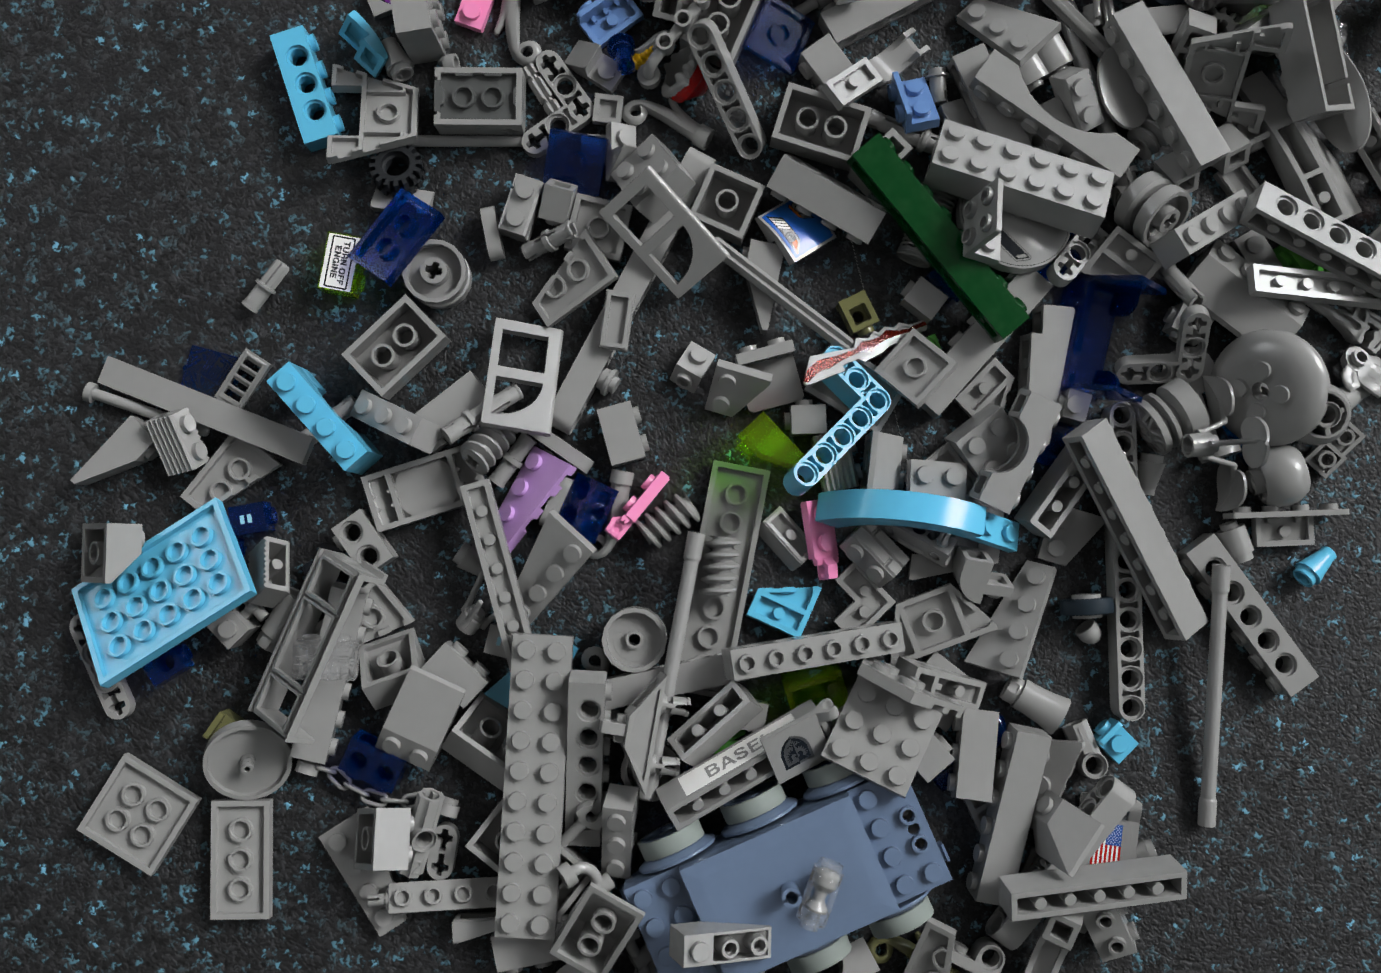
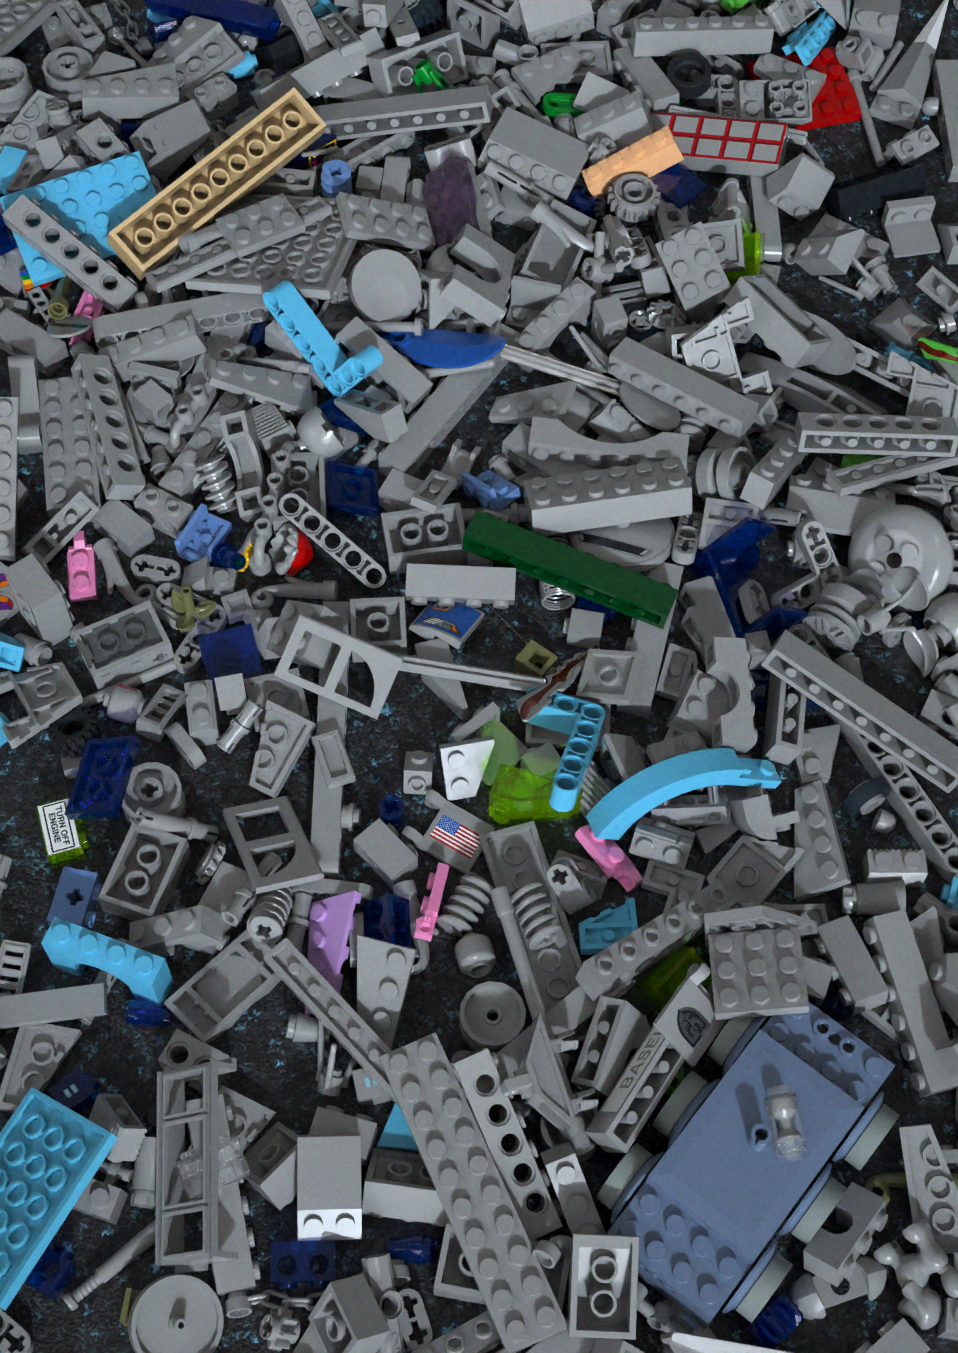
camera: 25 degrees left, 25 degrees down
(220, 681) = (123, 1257): none -> light grey piece
(312, 344) = (72, 886): none -> medium blue brick
(330, 805) = (280, 1329): none -> light grey gear
(341, 479) = (145, 1014): none -> clear blue cone
(453, 321) = (187, 827): none -> light grey pin
(455, 163) = (124, 703): none -> light grey head
(460, 364) = (209, 862): none -> light grey gear
(470, 795) = (413, 1248): none -> clear blue cone
(473, 205) = (153, 727): none -> light grey slope
(554, 25) = (156, 569): none -> light grey beam
(556, 83) = (184, 604): none -> olive plant
(584, 821) = (535, 1203): light grey bar -> none
(650, 387) = (390, 804): none -> clear blue bush
(652, 570) = (475, 955): none -> light grey head
(692, 443) = (451, 836): none -> light grey flag
(718, 943) = (720, 1216): light grey slope -> none
(769, 550) = (571, 888): none -> light grey piece
(984, 224) = (597, 534): light grey bracket -> none
(1070, 682) = (894, 866): none -> light grey brick
(1099, 357) = (753, 600): none -> light grey beam

